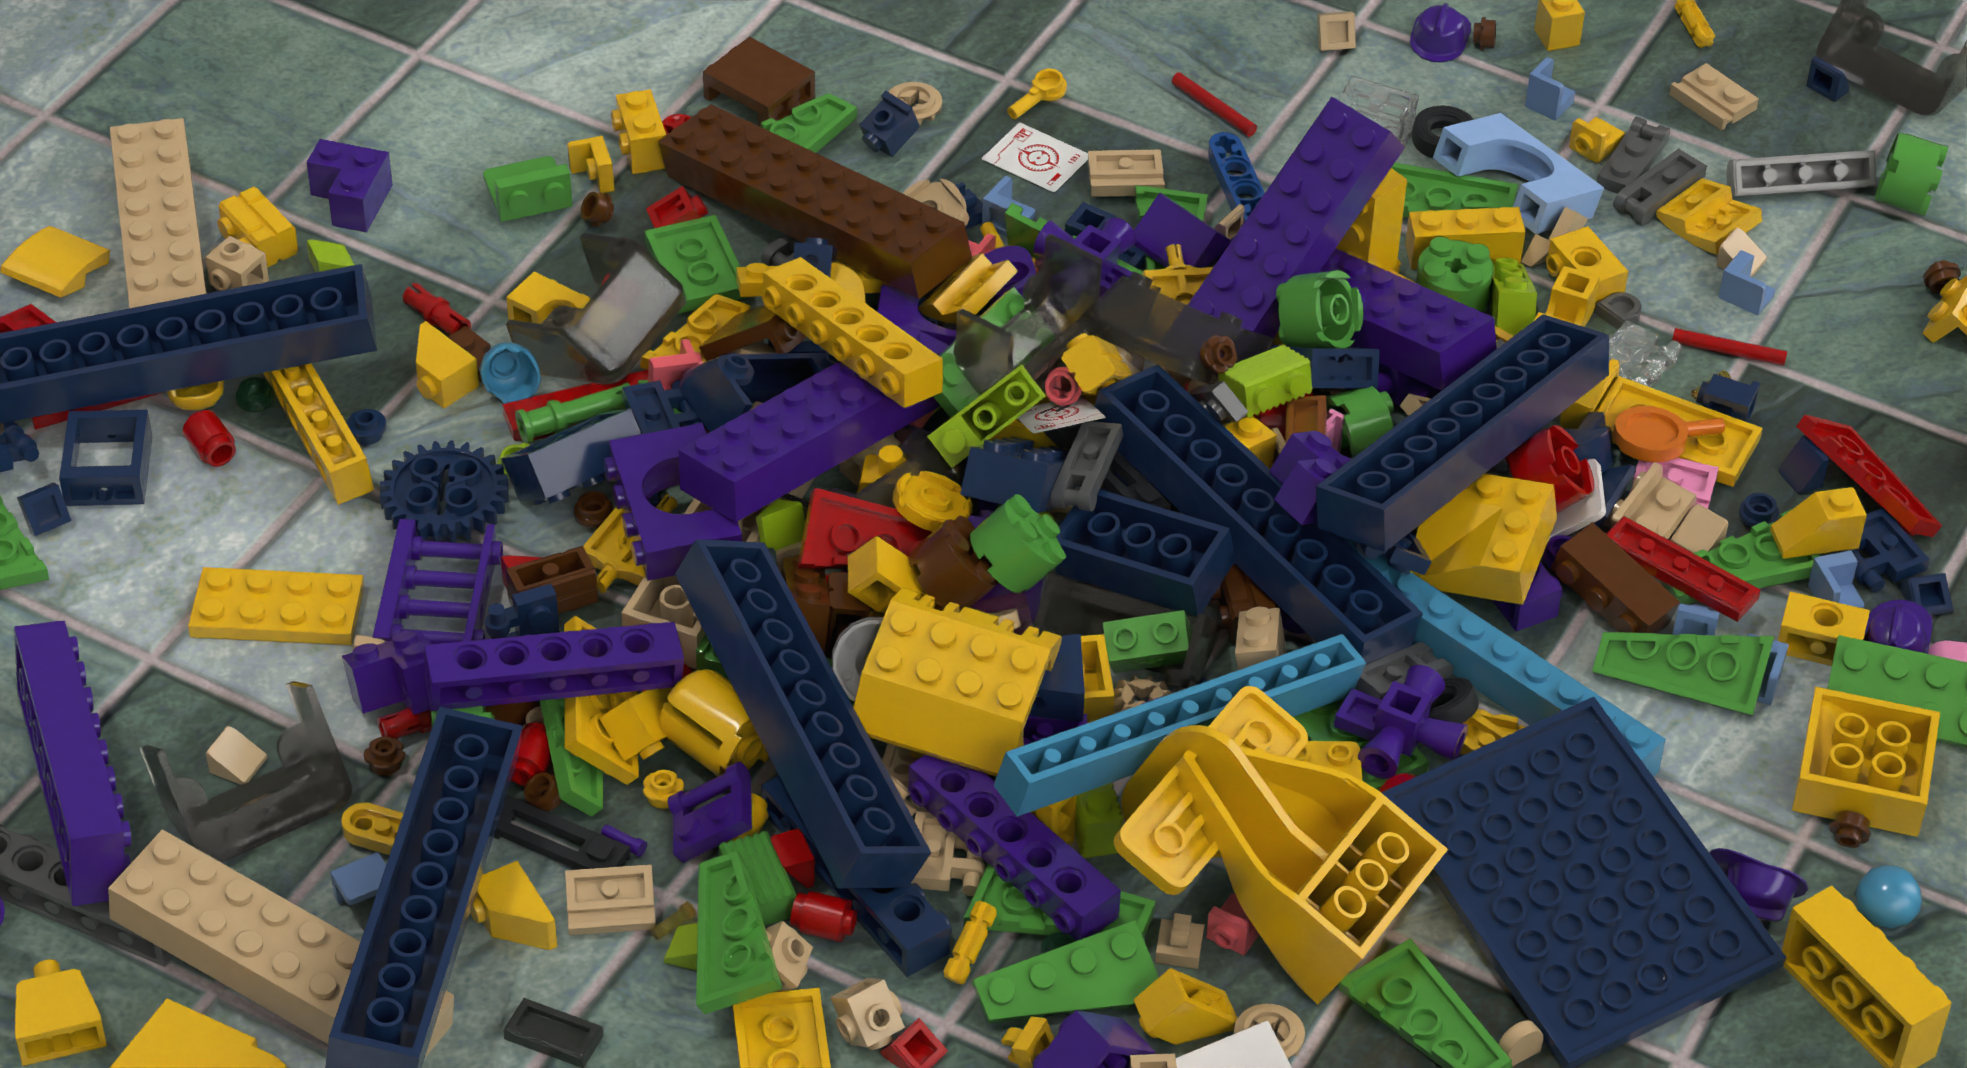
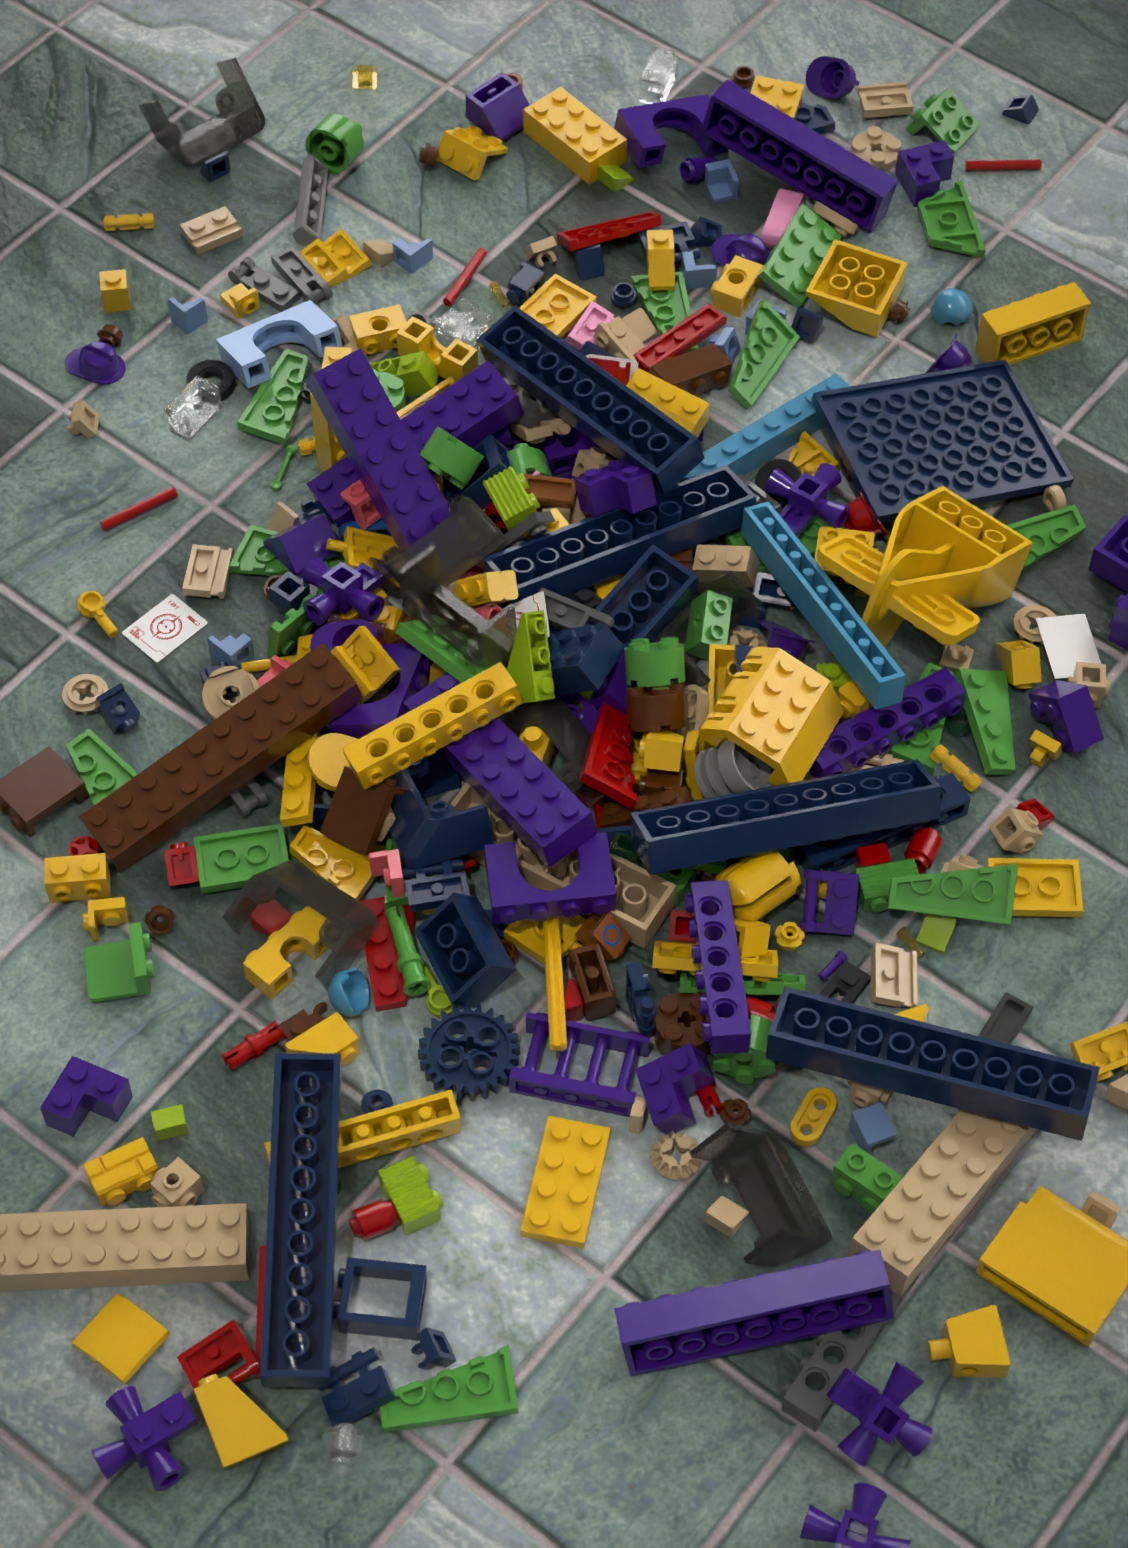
camera: 80 degrees left, 10 degrees up
(242, 462) = (410, 1193): none -> lime brick
(290, 866) = (864, 1178): none -> bright green bracket
(337, 701) = (666, 1164): none -> tan gear
(530, 541) = (554, 984): none -> yellow axle
(615, 588) = (606, 932): none -> dark orange brick
(817, 253) = (305, 755): dark blue bracket -> none
(930, 499) = (586, 715): yellow tile -> none
(1211, 356) = (496, 514): reddish brown plate -> none
(1238, 160) = (234, 502): blue beam -> none
(1658, 434) = (561, 319): orange piece -> none
(1777, 719) = (807, 324): none -> dark blue tile
(1801, 405) = (541, 249): none -> tan tile

